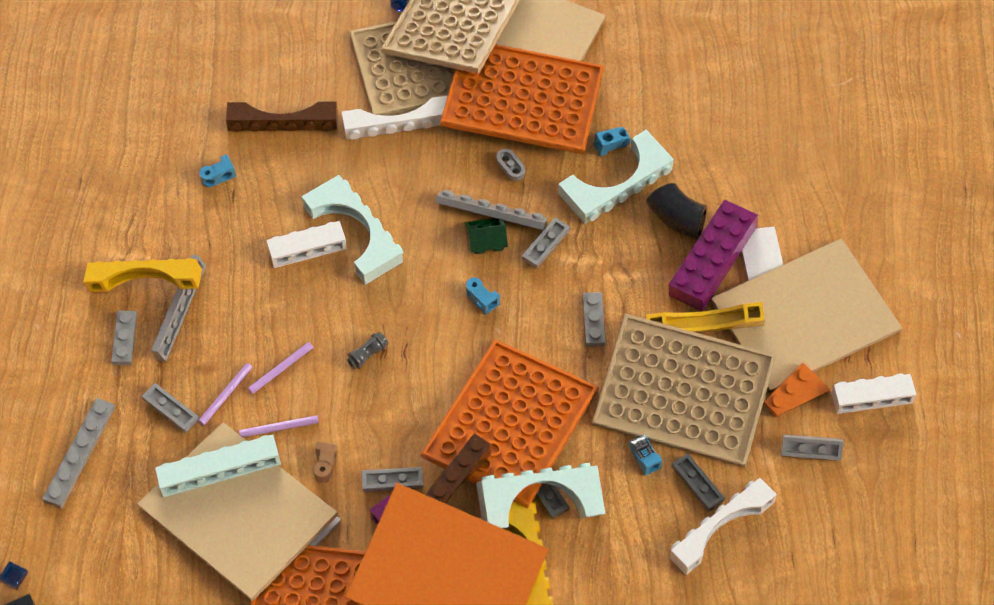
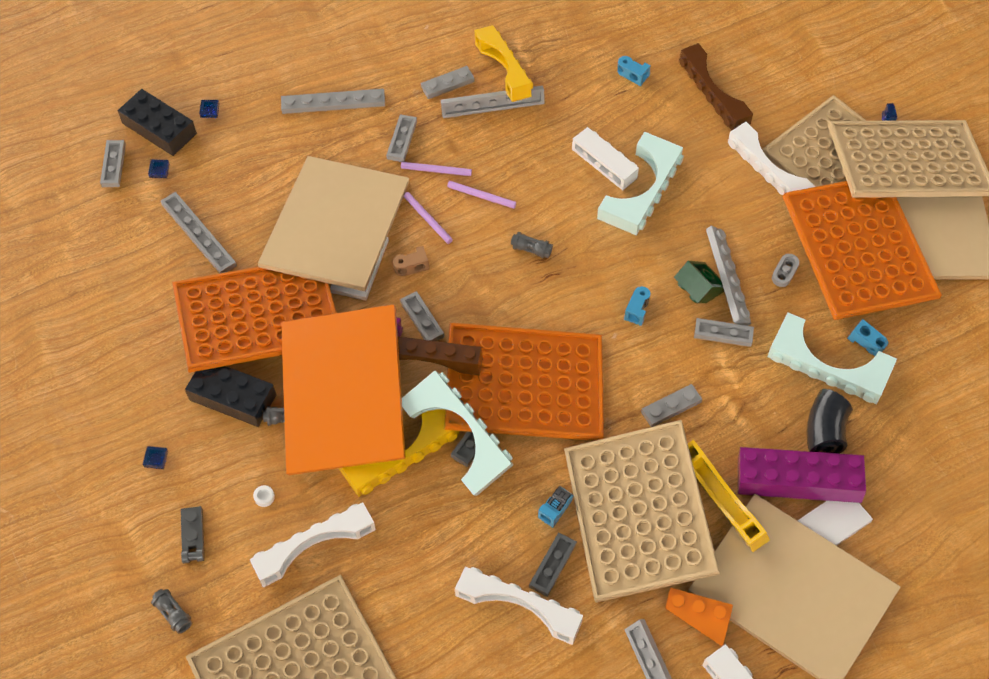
camera: 65 degrees right, 0 degrees up
(217, 465) = (364, 188): light aqua brick -> none

